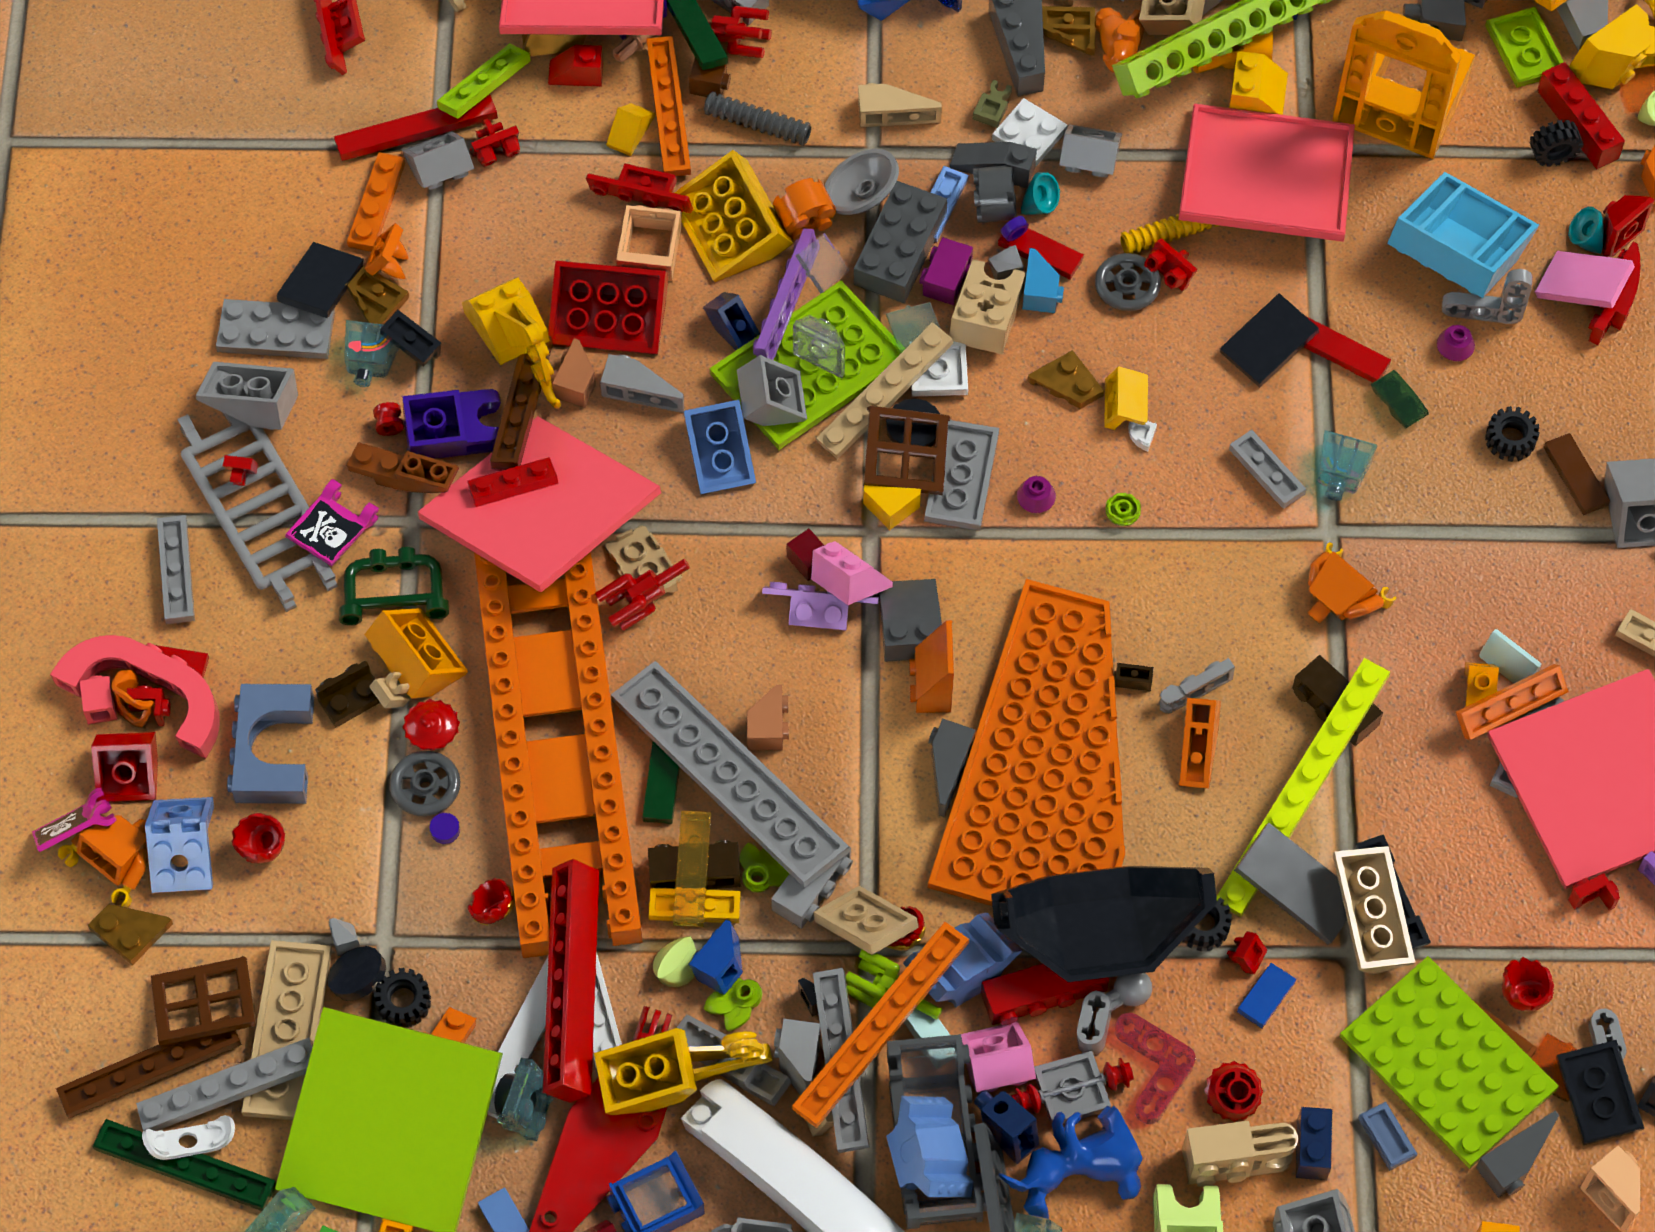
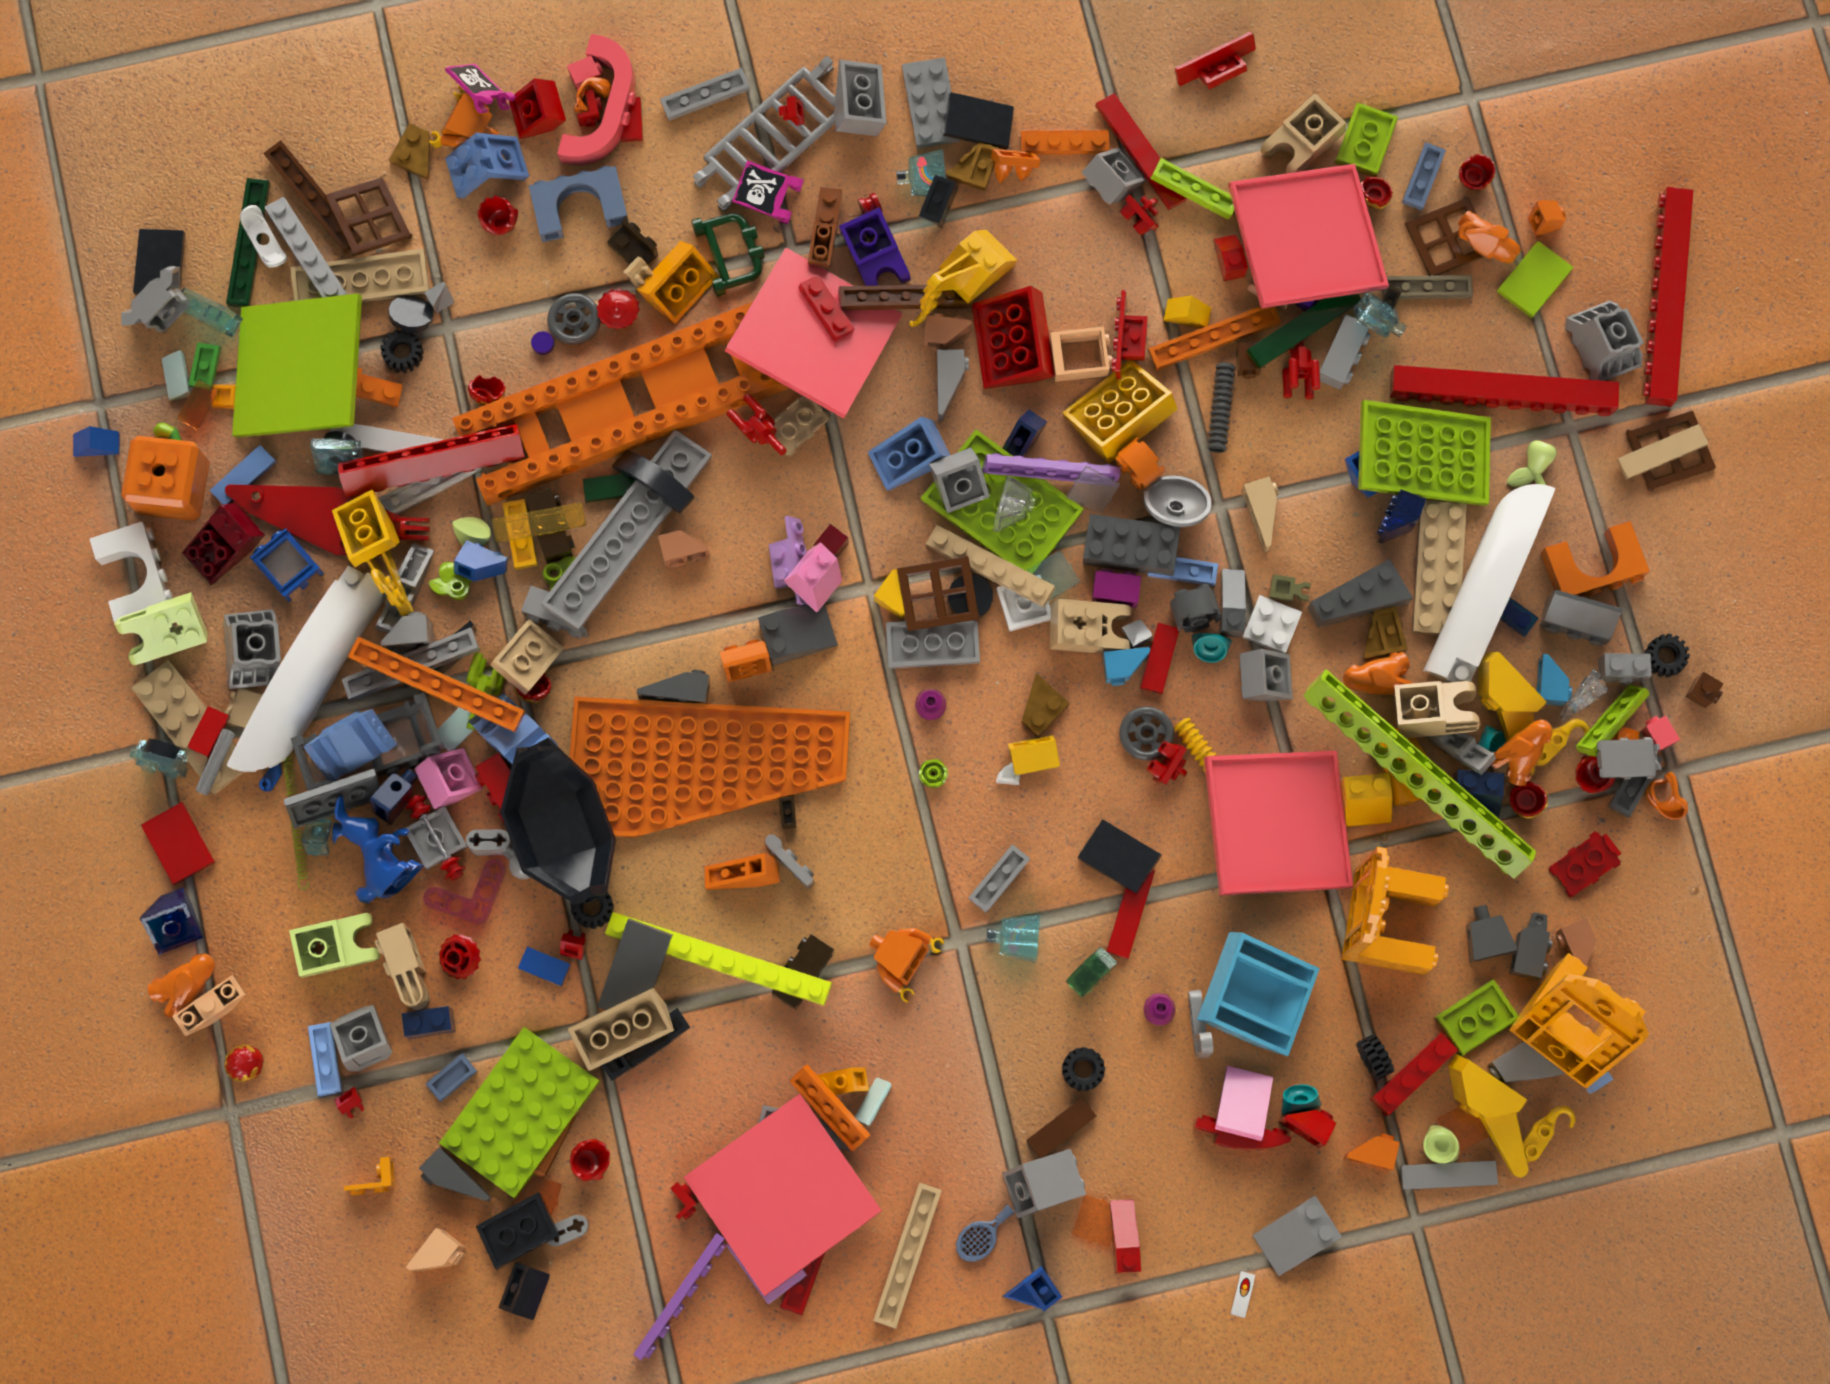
camera: 75 degrees right, 15 degrees up
(668, 727) = (655, 479): none -> black slope
(1014, 228) = (1166, 631): dark purple tile -> none

